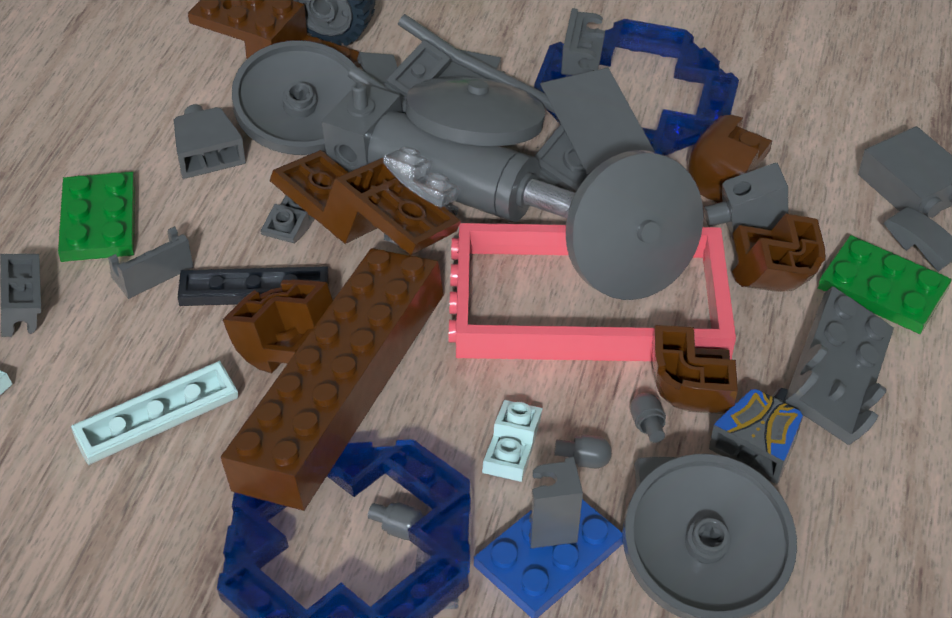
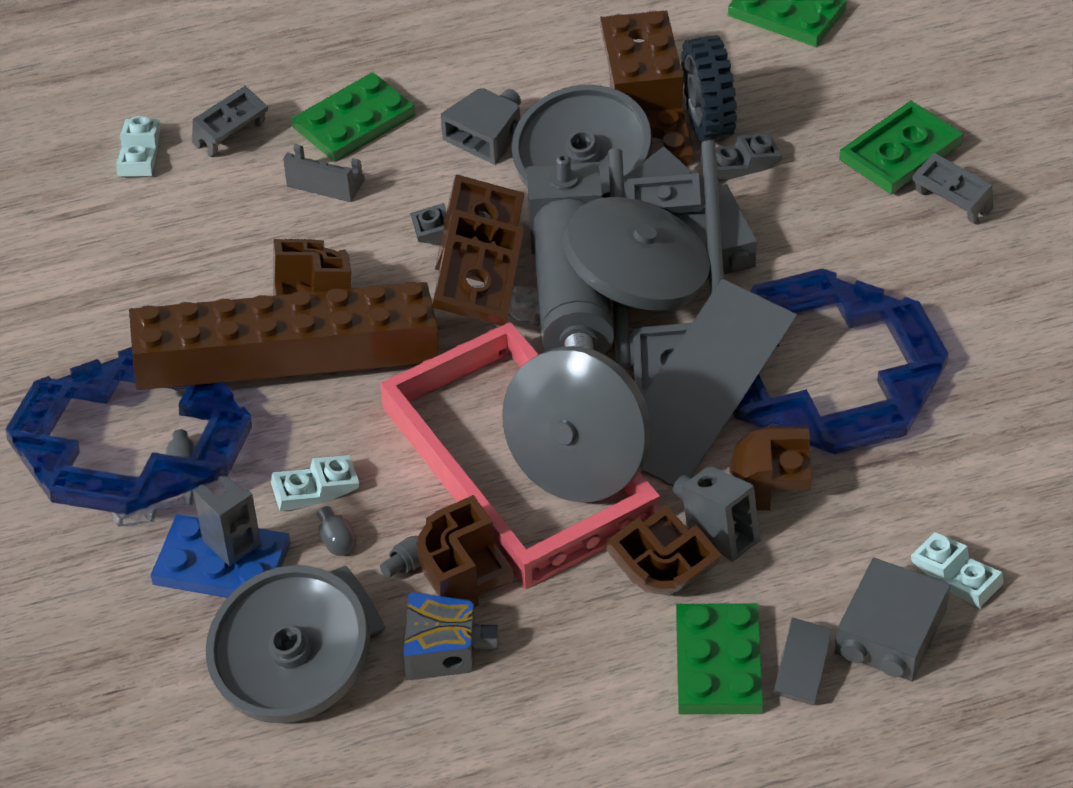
camera: 60 degrees right, 0 degrees up
(153, 412) = (176, 262): light aqua brick -> none
(232, 285) = (343, 232): black tile -> none
(386, 33) = (748, 156): none -> dark grey slope
(415, 174) = (519, 263): clear slope -> none
(582, 44) = (830, 285): dark grey hinge -> none
(841, 367) = (566, 657): dark grey hinge -> none
(873, 127) = (950, 563): none -> light aqua slope

